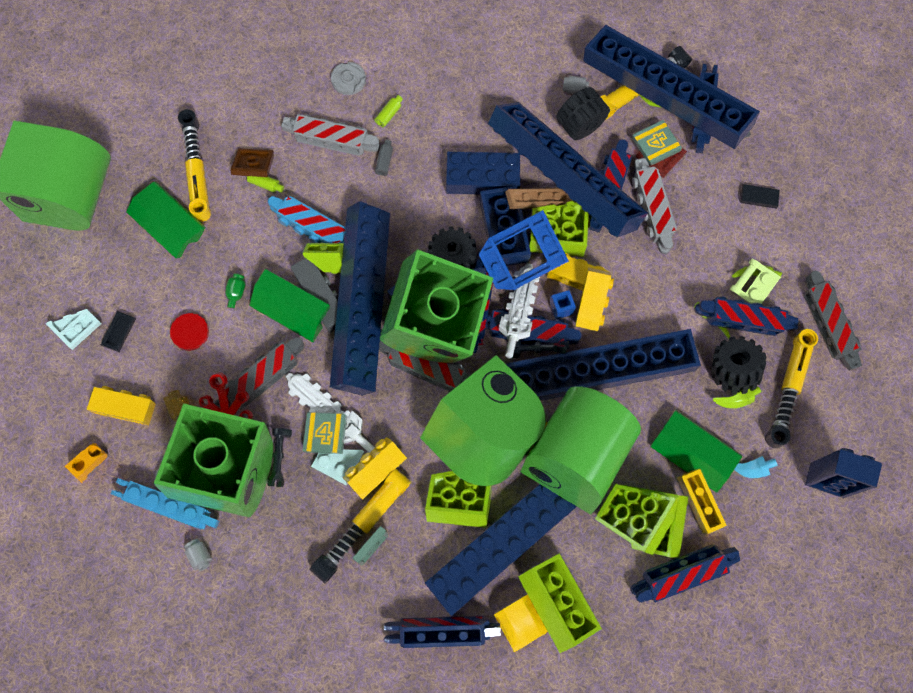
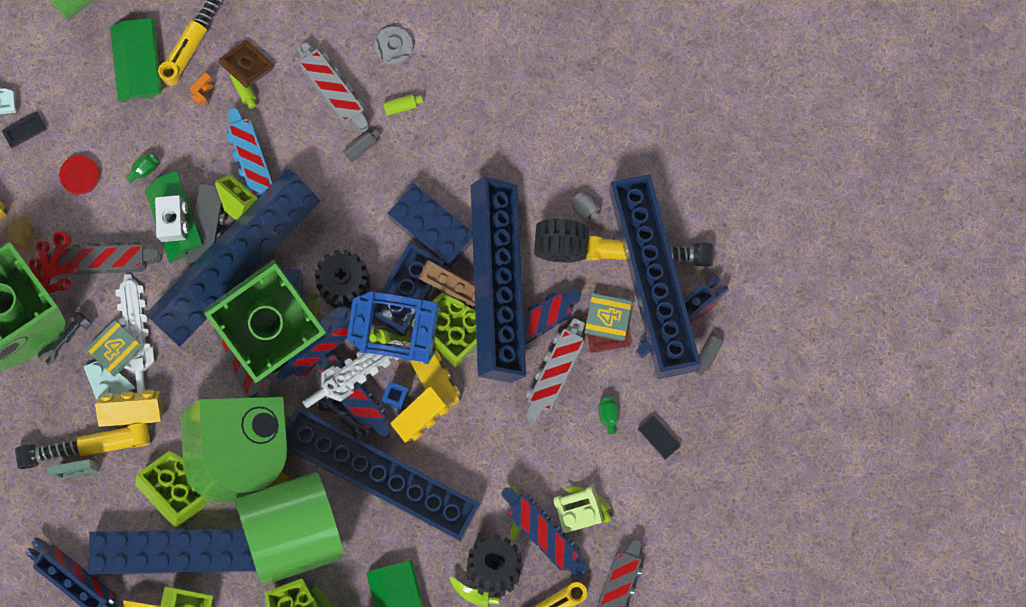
camera: 40 degrees right, 5 degrees up
(233, 205) = (201, 86): none -> orange bracket
(284, 293) = (165, 208): none -> white brick
(519, 268) = (385, 336): none -> lime bar
(714, 205) = (609, 414): none -> green plant

